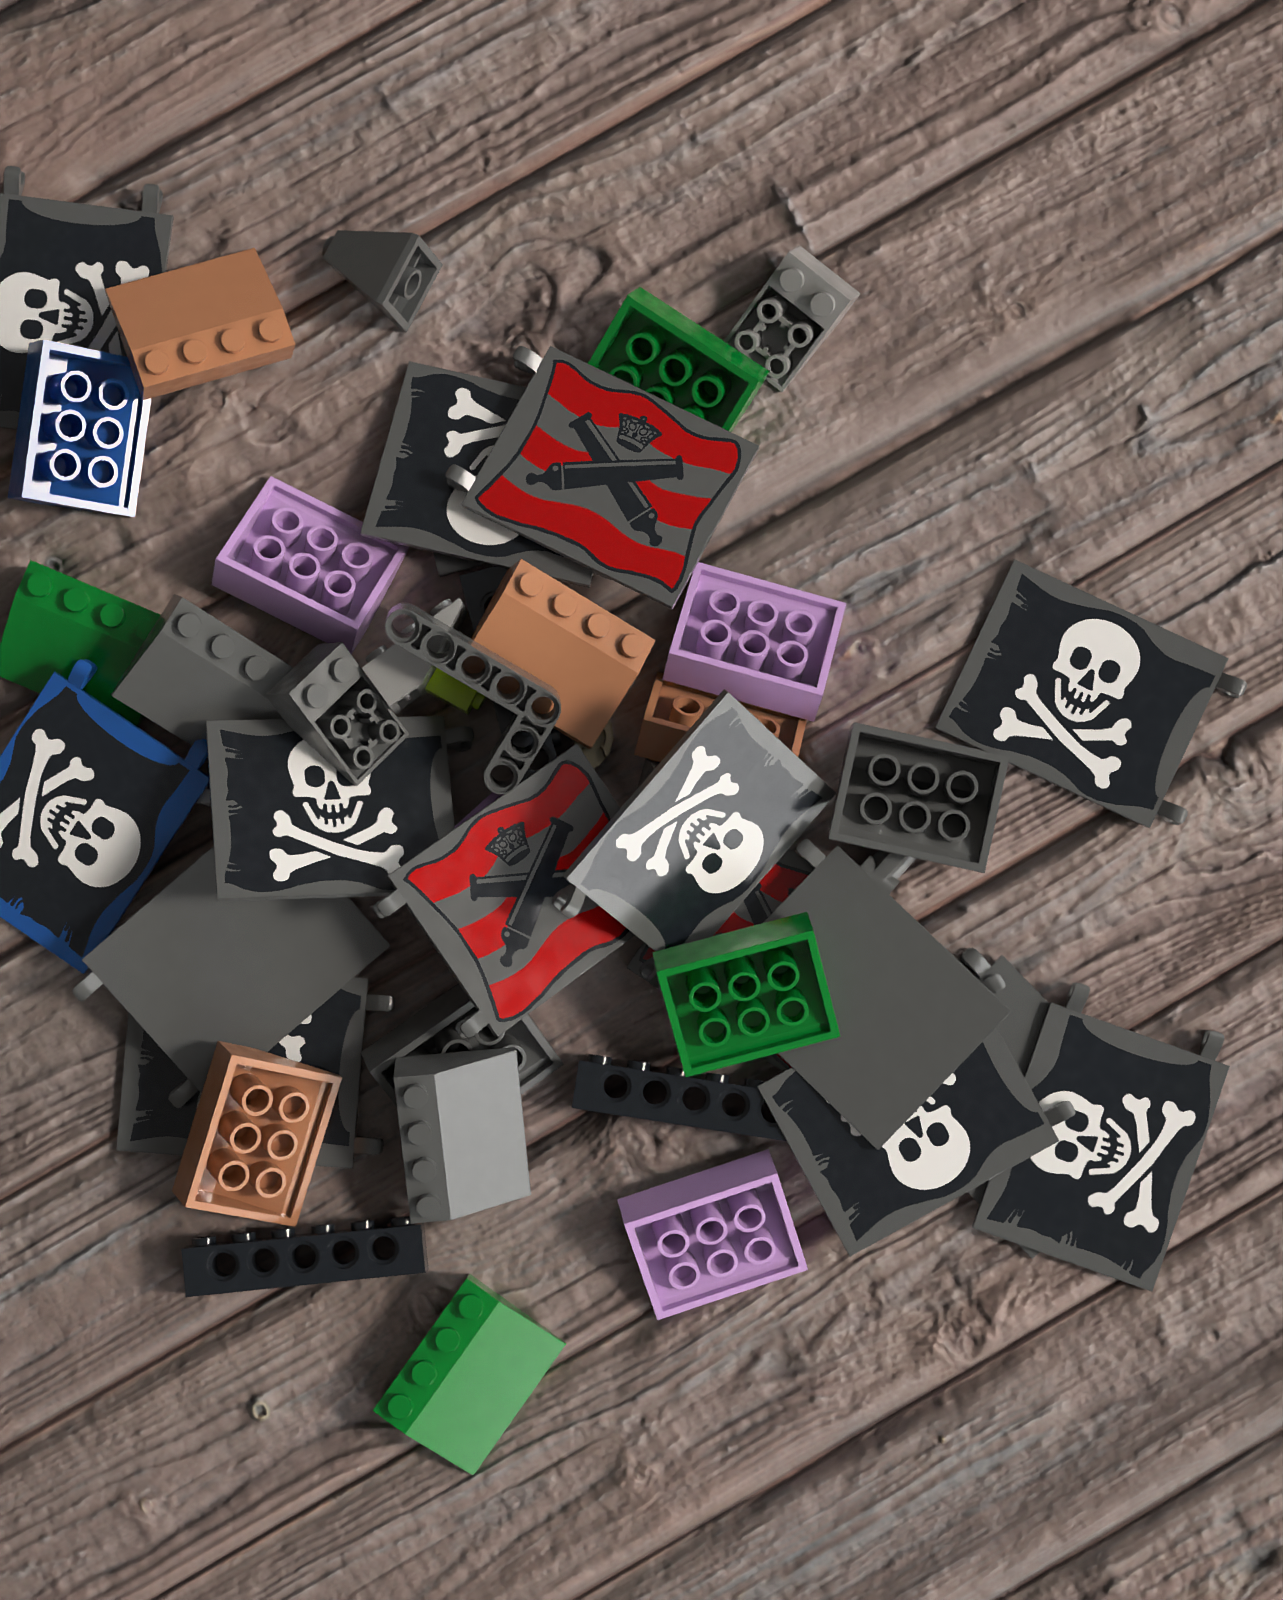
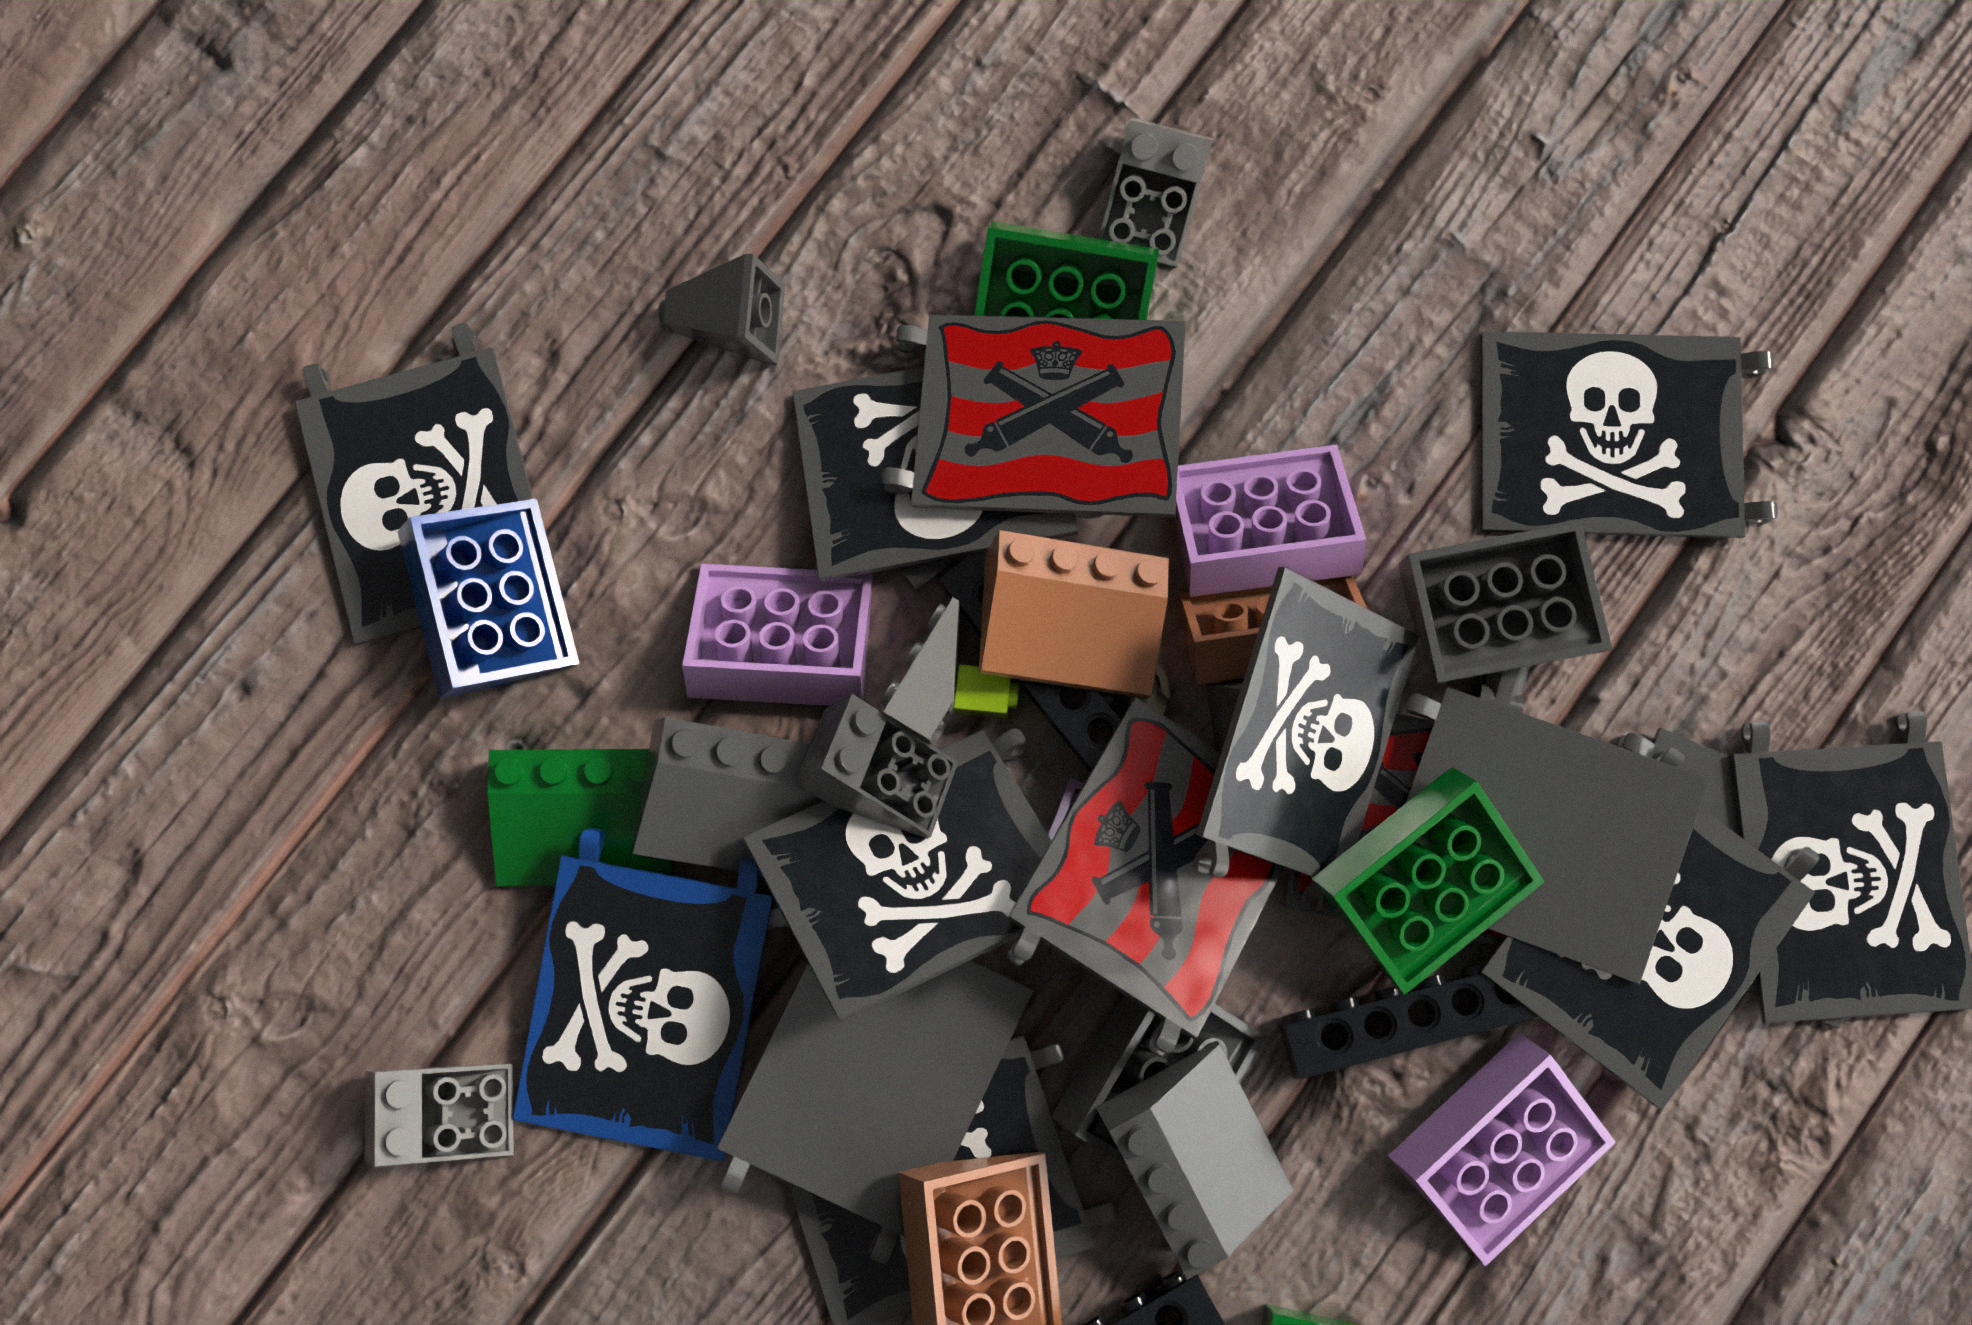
camera: 20 degrees left, 5 degrees down
(200, 323) = (566, 440): nougat slope -> none
(485, 683) = (1021, 670): dark grey beam -> none

